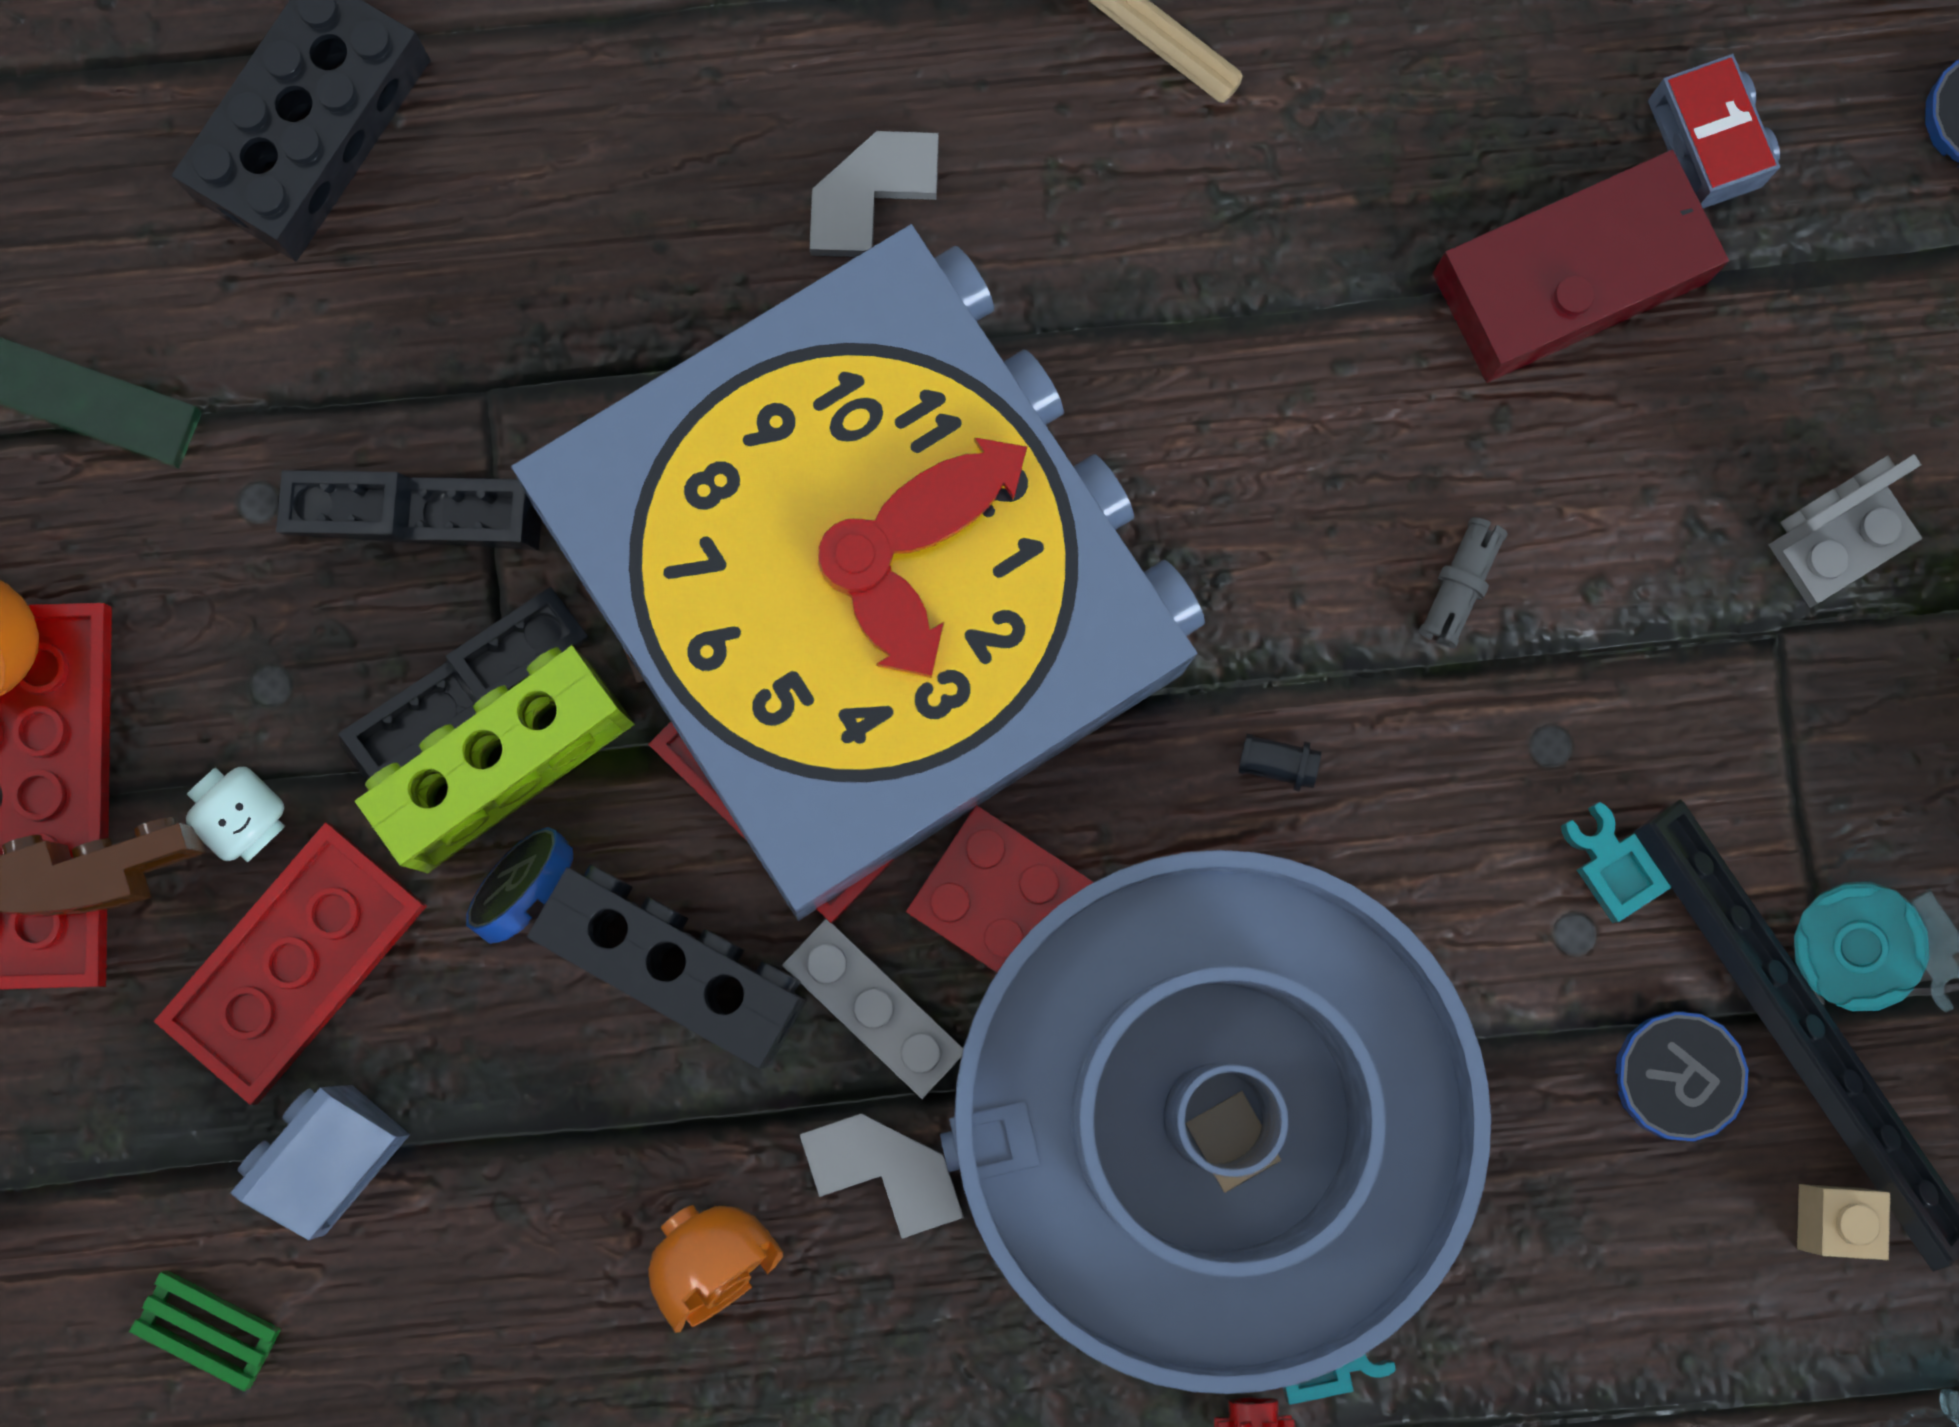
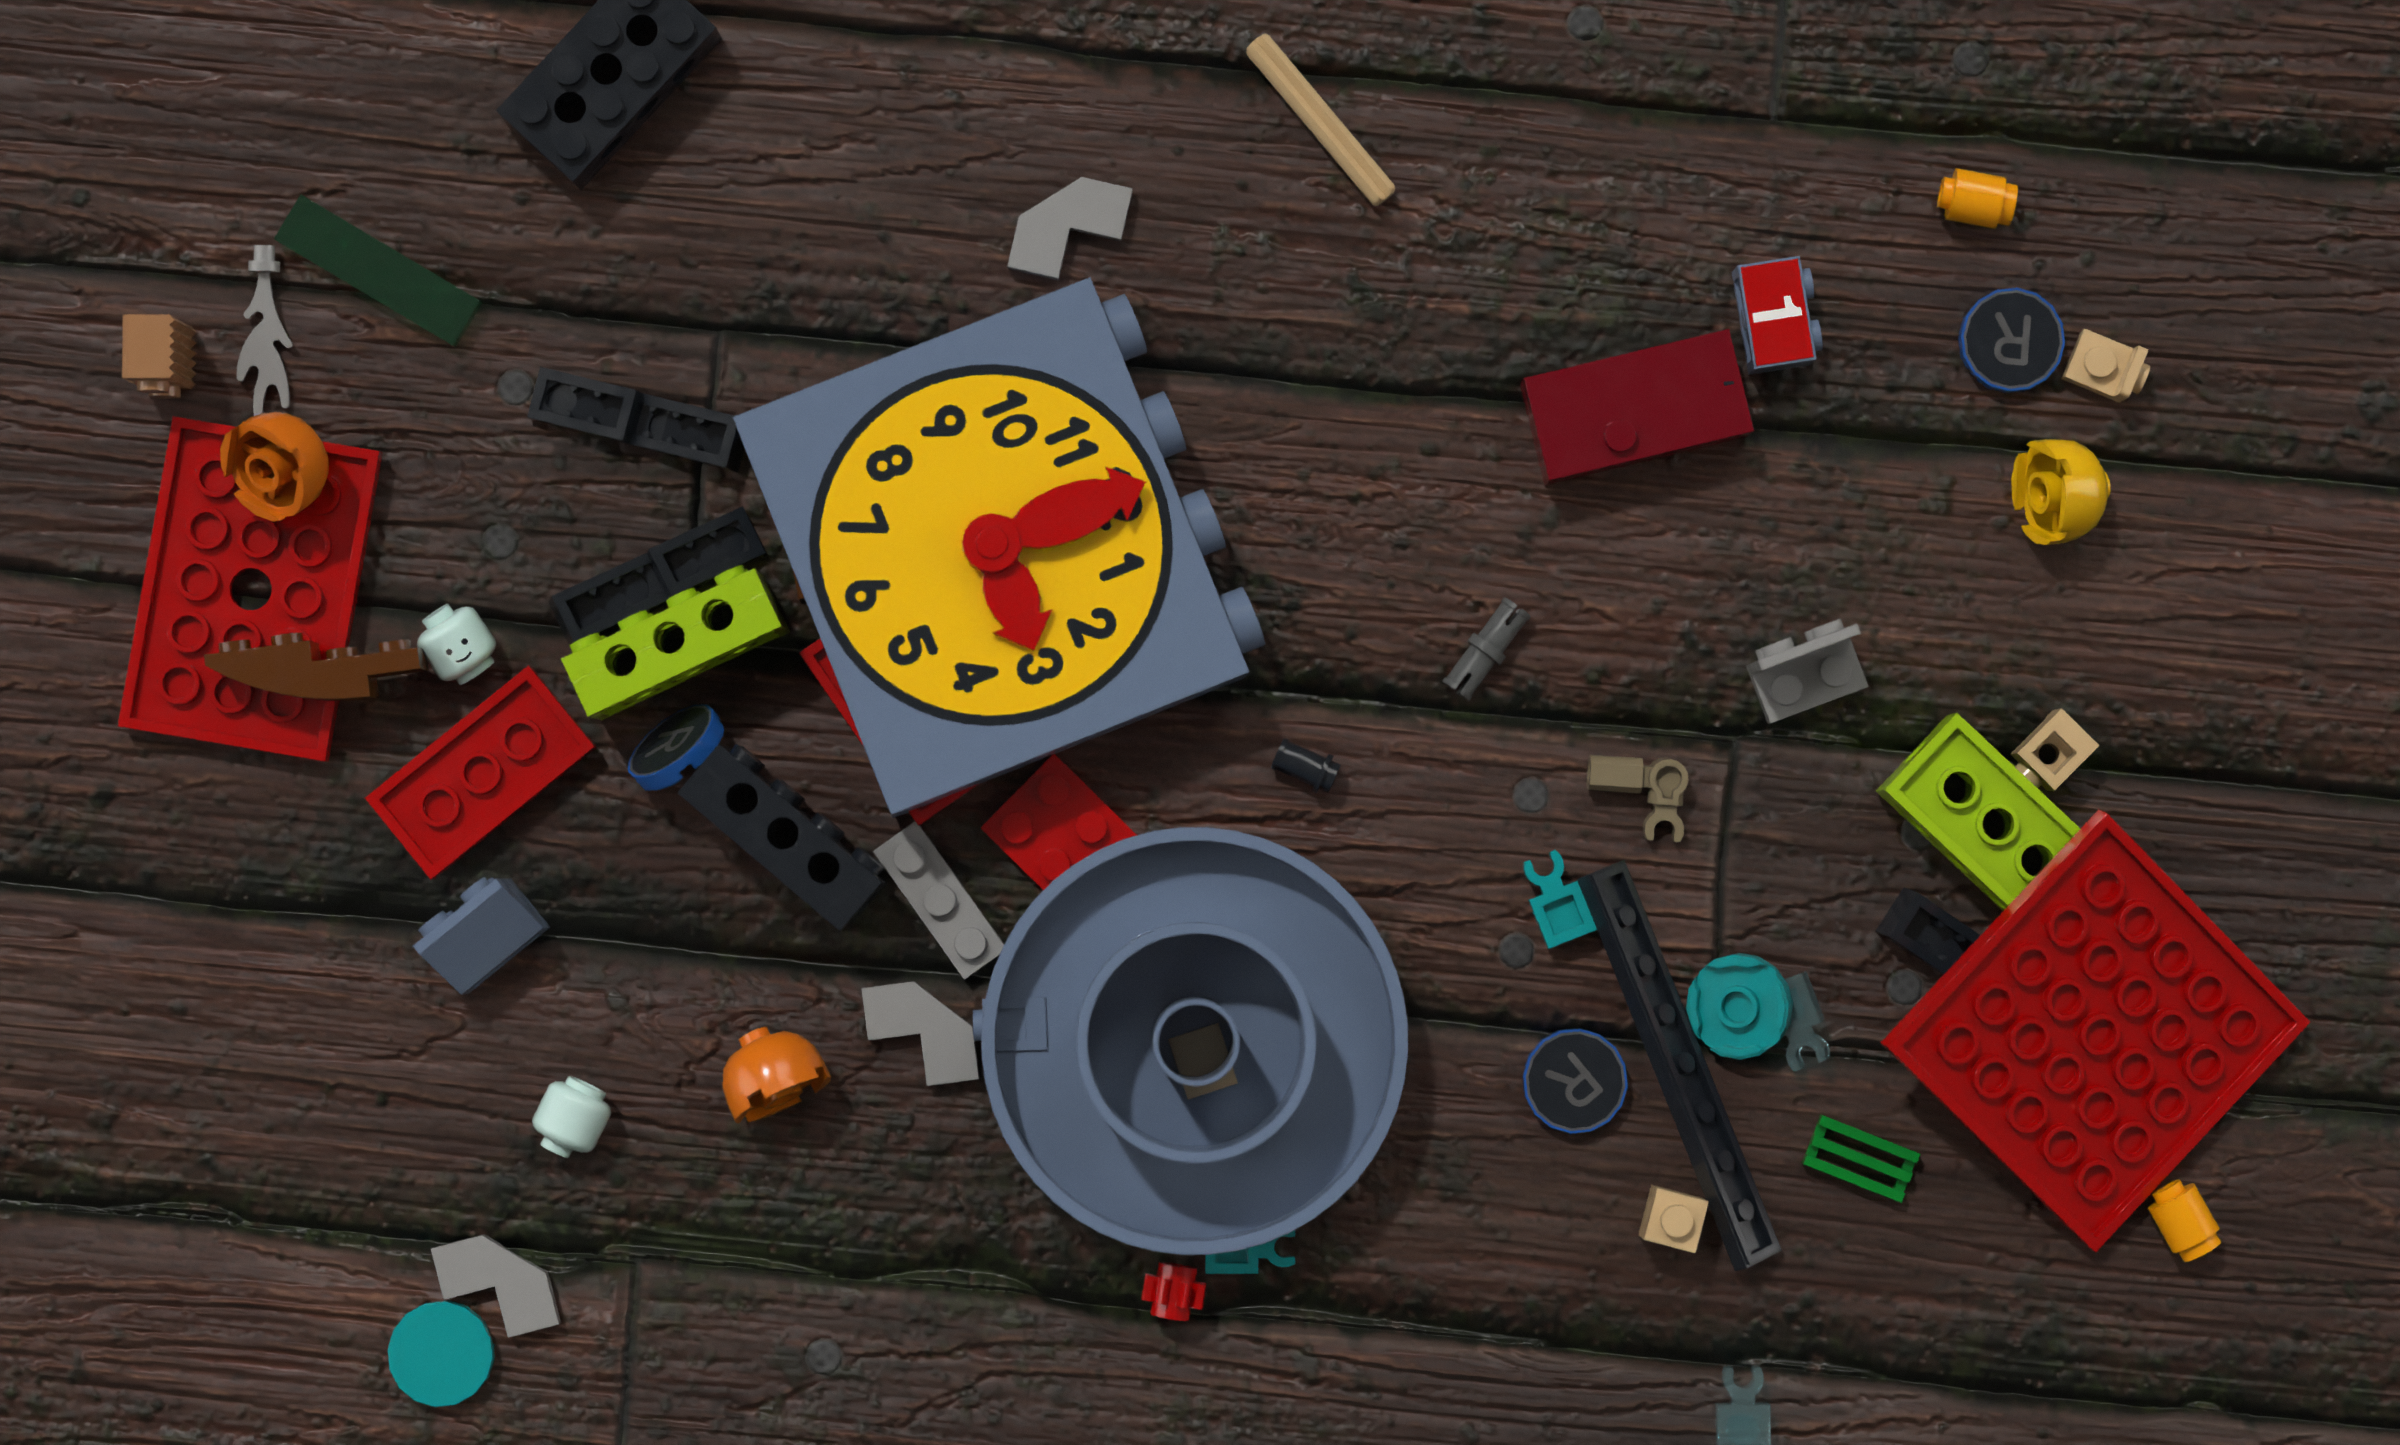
camera: 10 degrees right, 5 degrees up
(156, 1306) = (328, 1022): green tile -> none
(473, 1364) = (571, 1116): none -> light aqua head
(1706, 693) = (1663, 777): none -> dark tan bar

